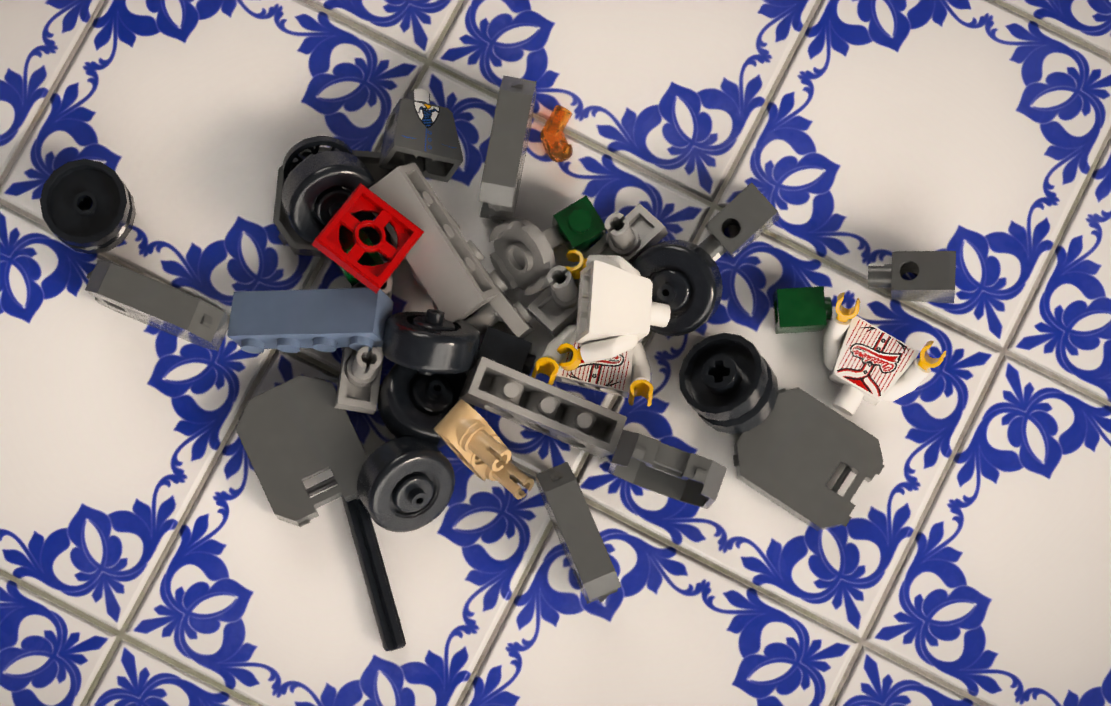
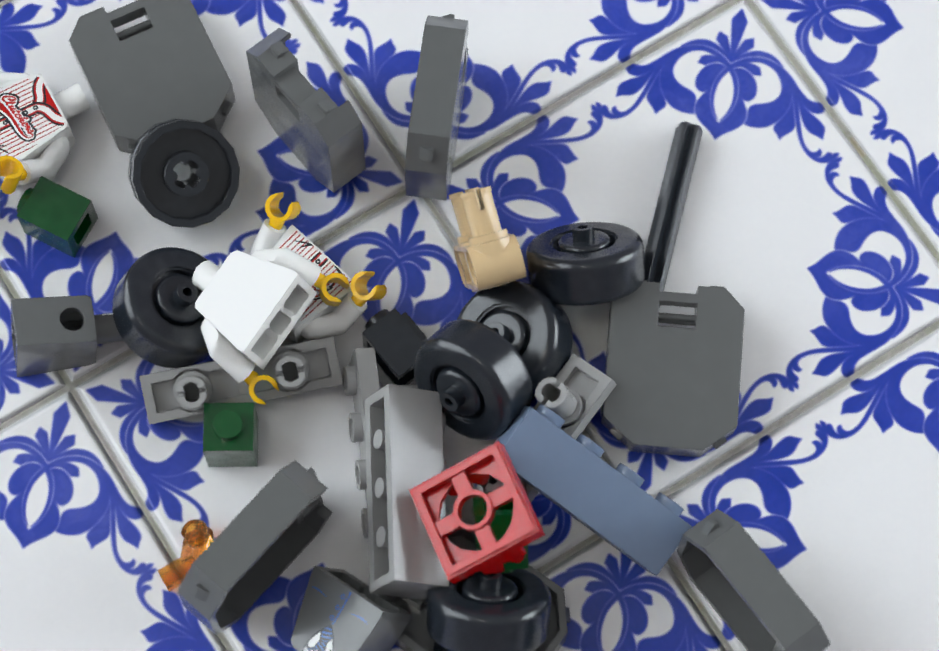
camera: 145 degrees left, 10 degrees down
(524, 254) = (307, 431): light grey tile -> none
(543, 407) = (392, 252): light grey brick -> none

